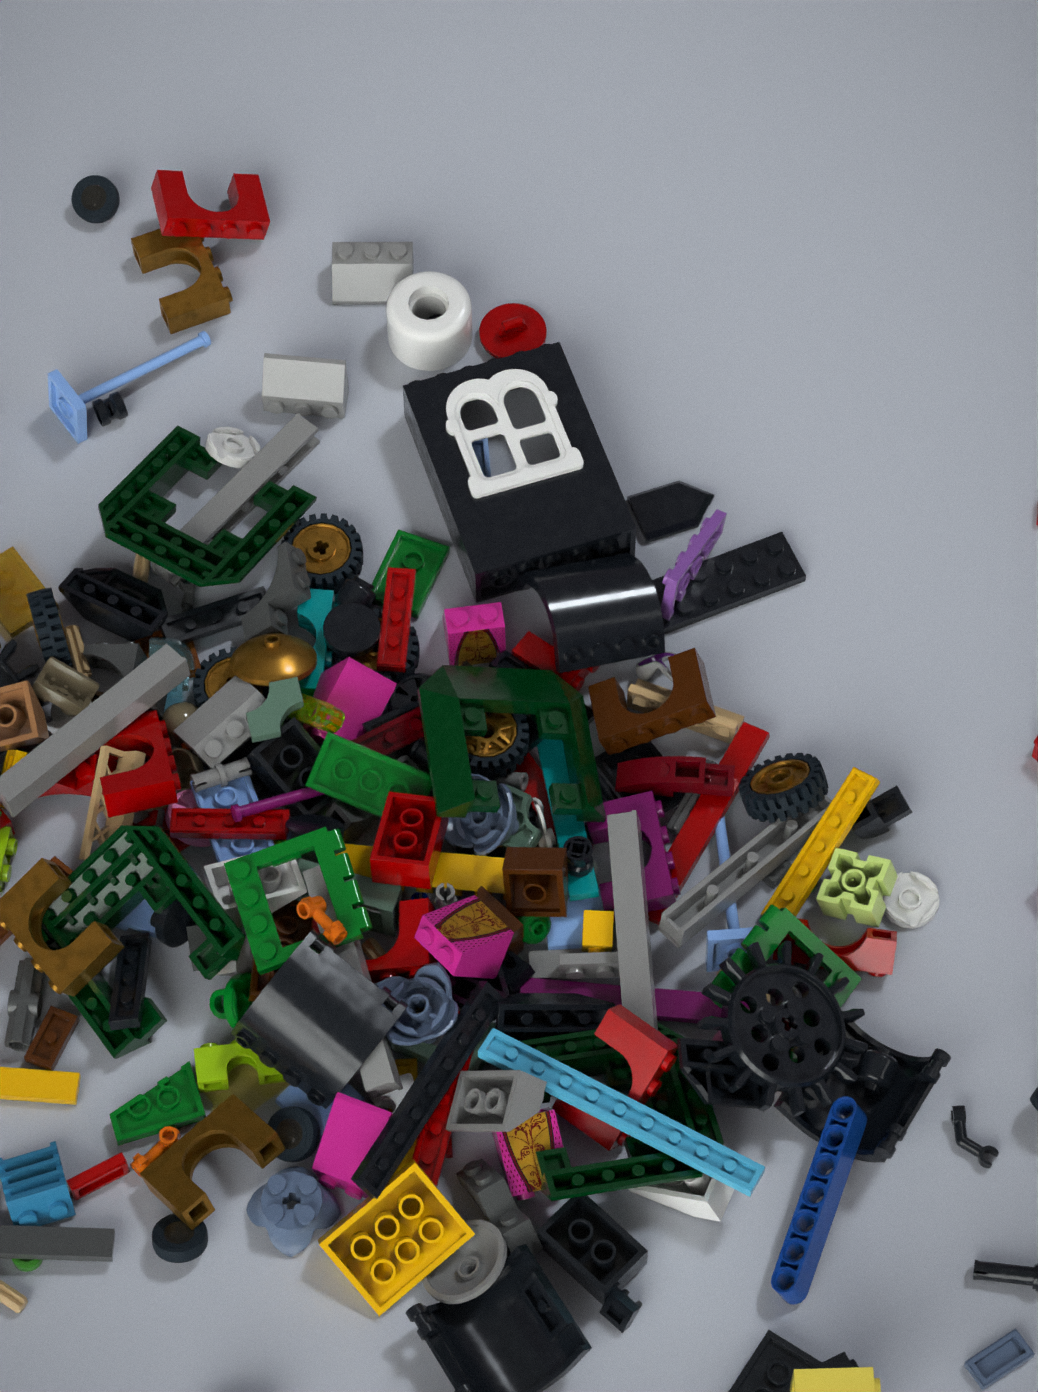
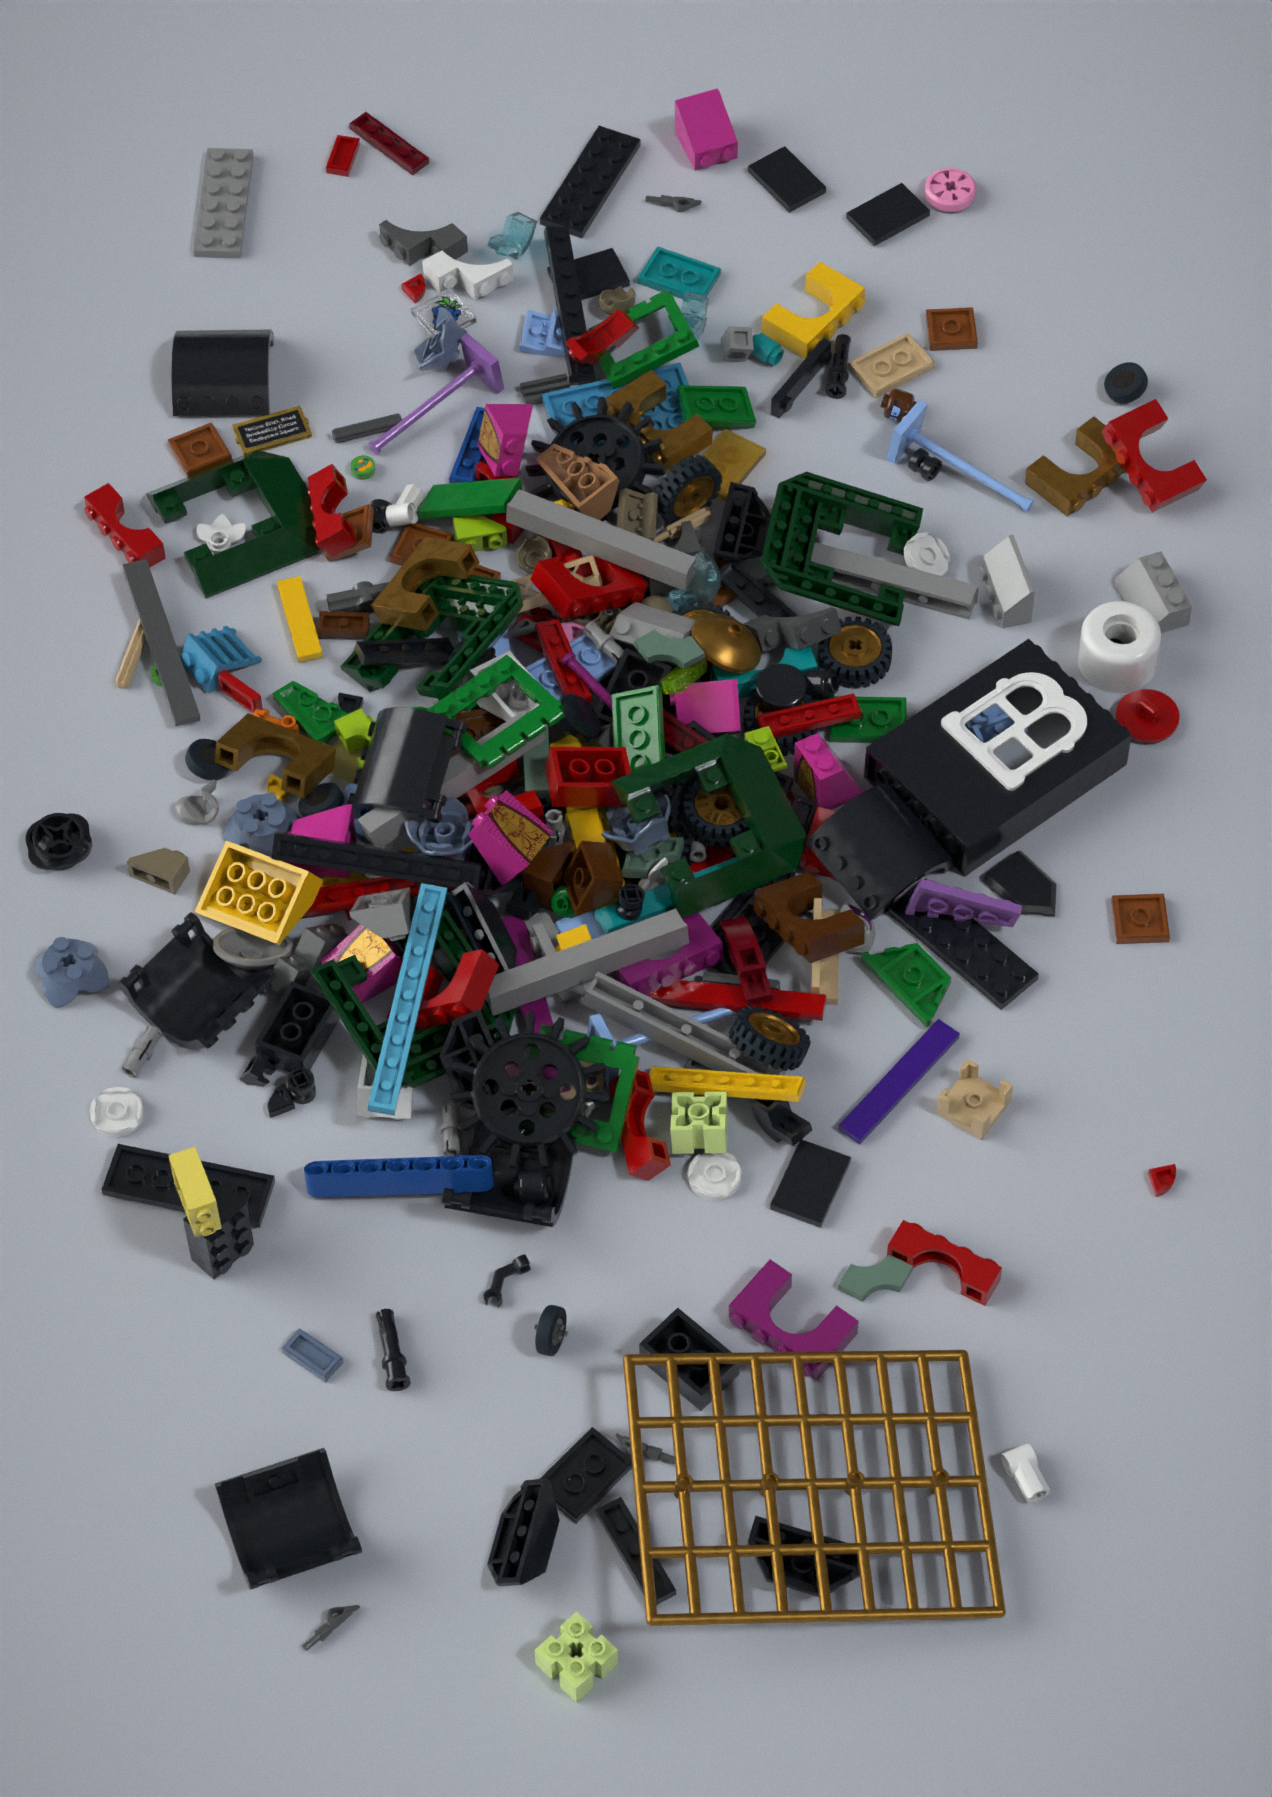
camera: 70 degrees right, 5 degrees down
(21, 404) = (897, 404): none -> reddish brown head
(52, 812) = (532, 552): none -> dark tan hair
(162, 1066) = (349, 703): none -> black tile
(237, 1278) = (193, 808): none -> light grey piece
(246, 1177) = (275, 785): none -> yellow tile
(311, 1332) = (160, 869): none -> dark tan slope
(316, 908) = (486, 720): orange bar -> none
(422, 666) = (764, 738): none -> lime slope
(661, 1273) = (301, 1085): none -> black wheel
(666, 1298) = (280, 1101): none -> black tile
(746, 641) = (911, 977): none -> green wing
(747, 425) = (1140, 918): none -> dark orange tile
(768, 1133) = (450, 1129): none -> light grey pin
(859, 697) = (899, 1081): none -> dark purple tile
(910, 638) = (973, 1101): none -> tan panel
(952, 815) = (810, 1183): none -> black tile

